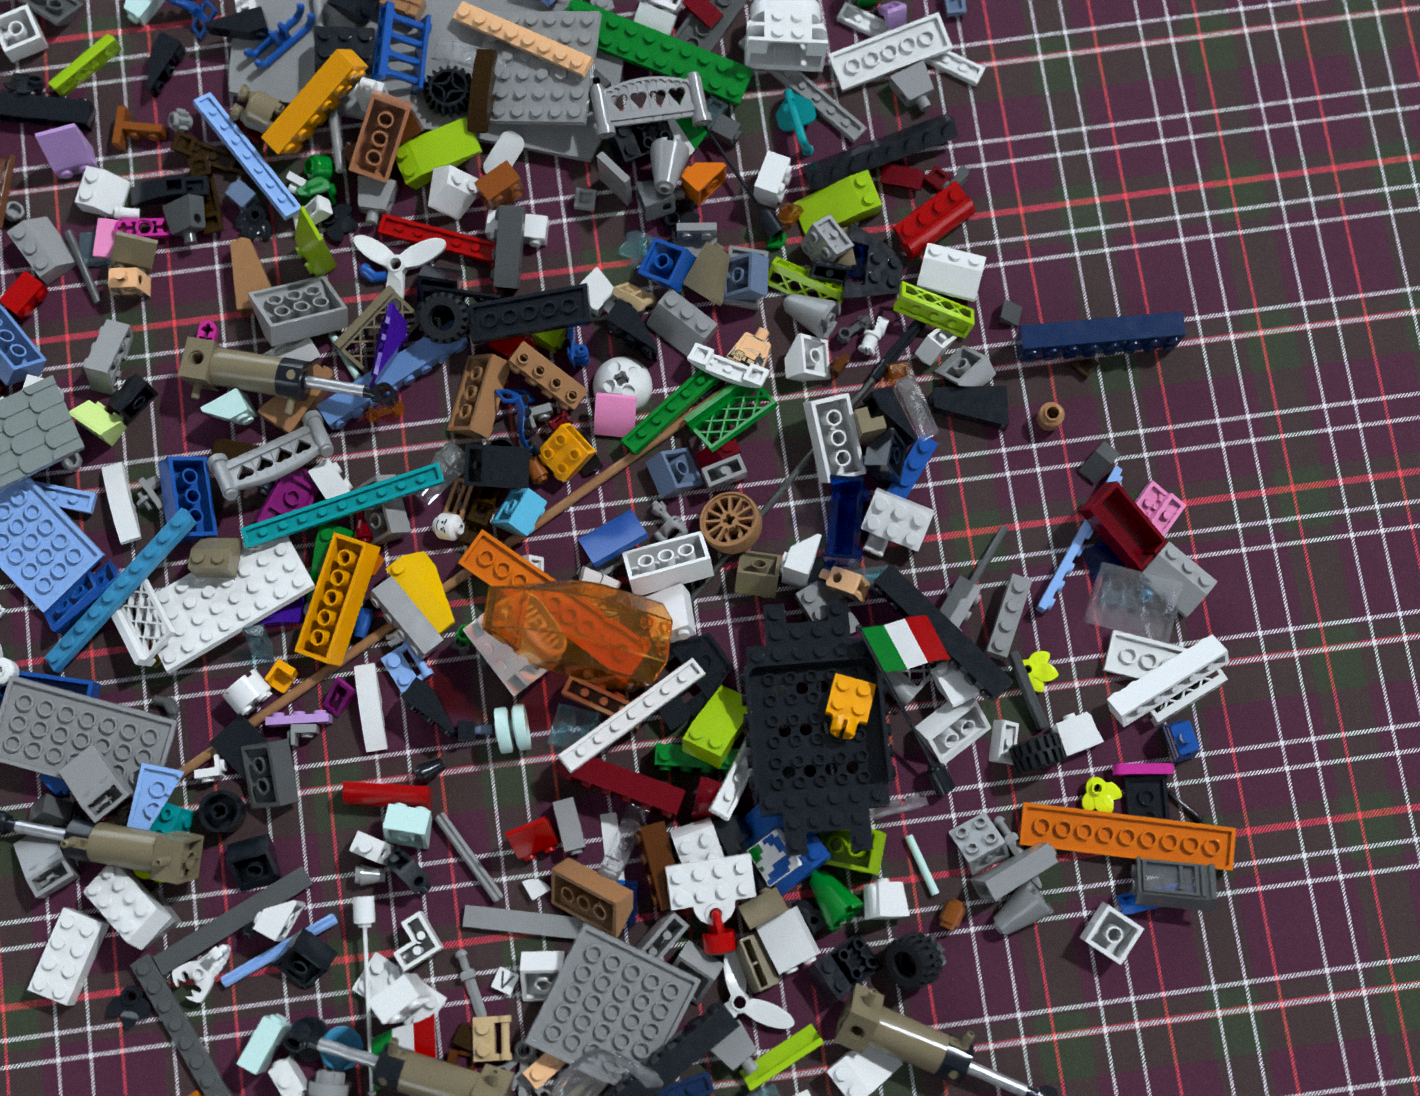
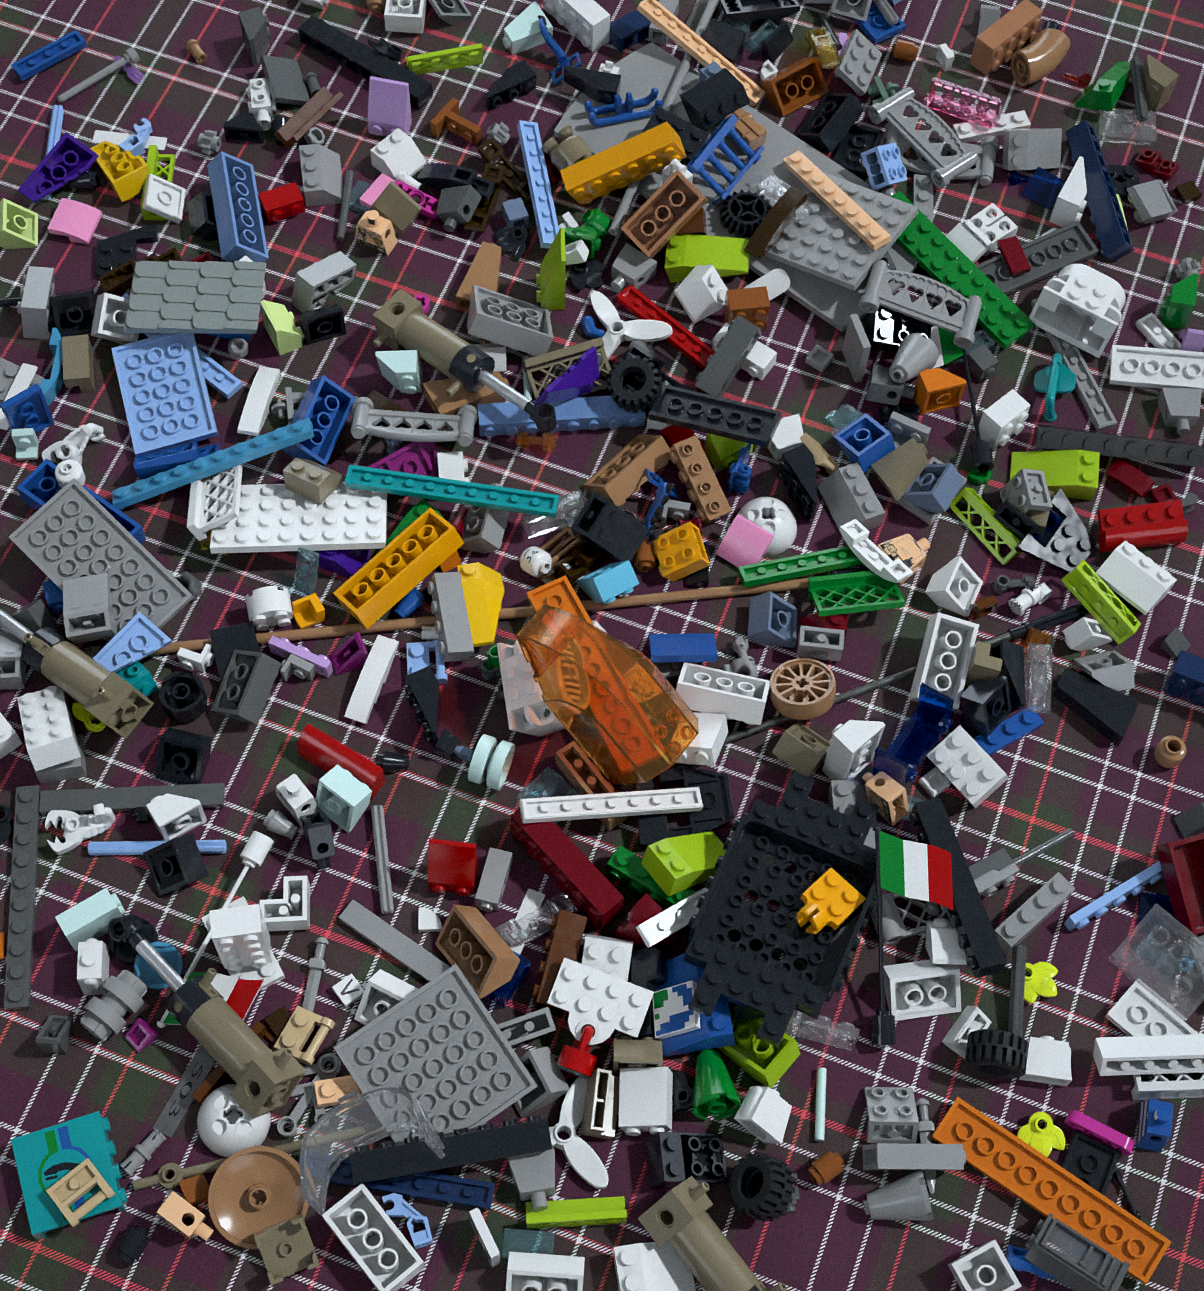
camera: 25 degrees right, 15 degrees down
(790, 213) = (1005, 458): clear orange plate -> none
(813, 313) = (982, 550): light grey cone -> none

